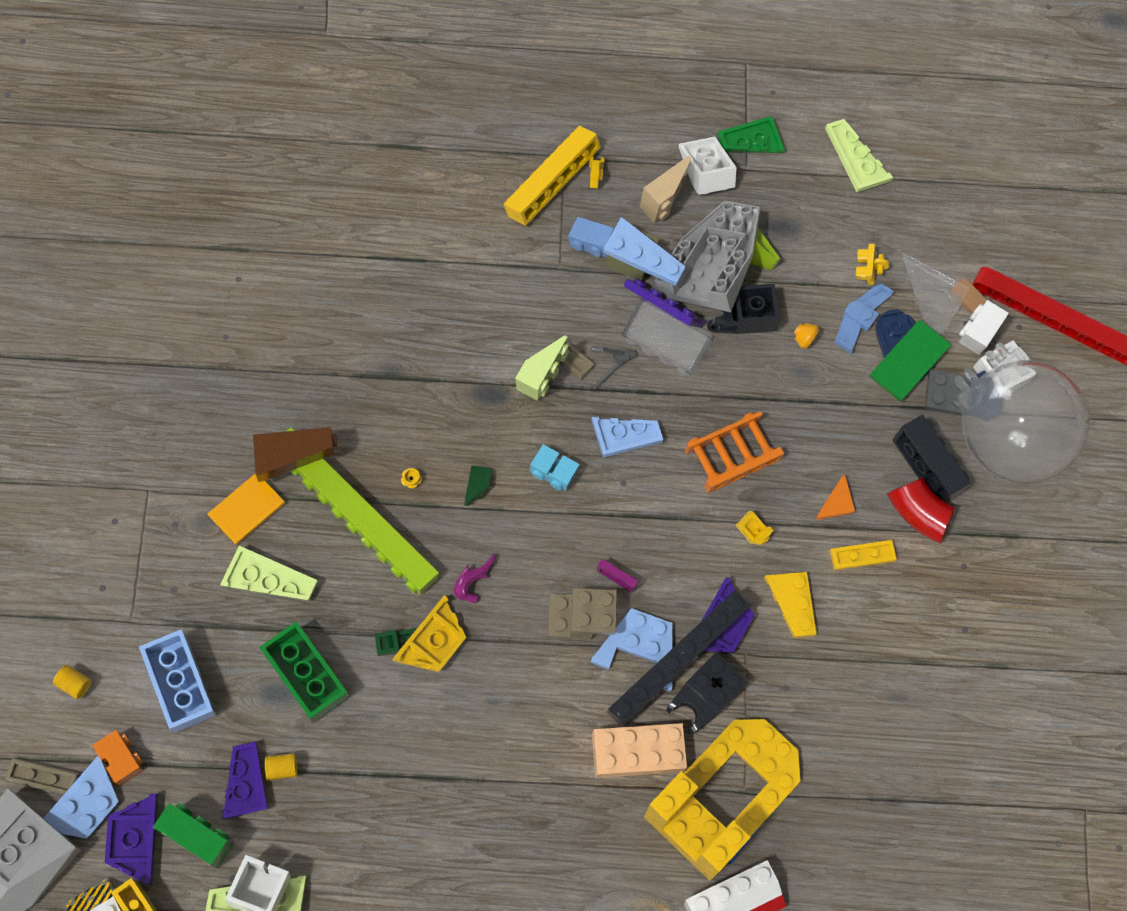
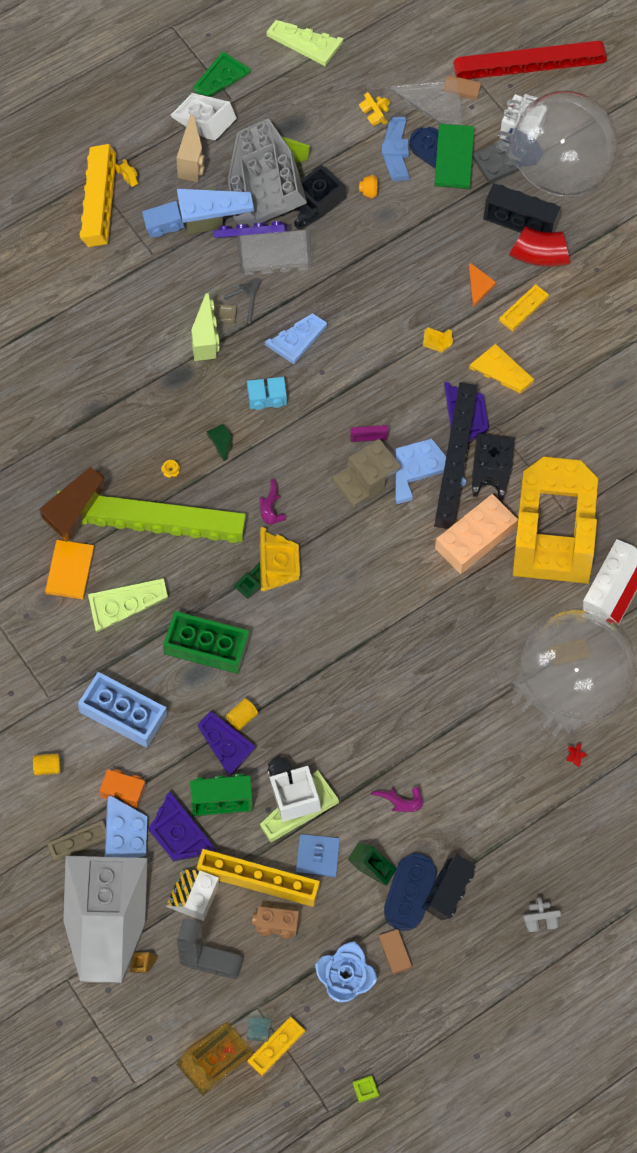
camera: 30 degrees left, 5 degrees down
(272, 850) = (280, 765): none -> black head
(734, 472) = (392, 312): orange fence -> none
(985, 323) = (487, 99): white piece -> none

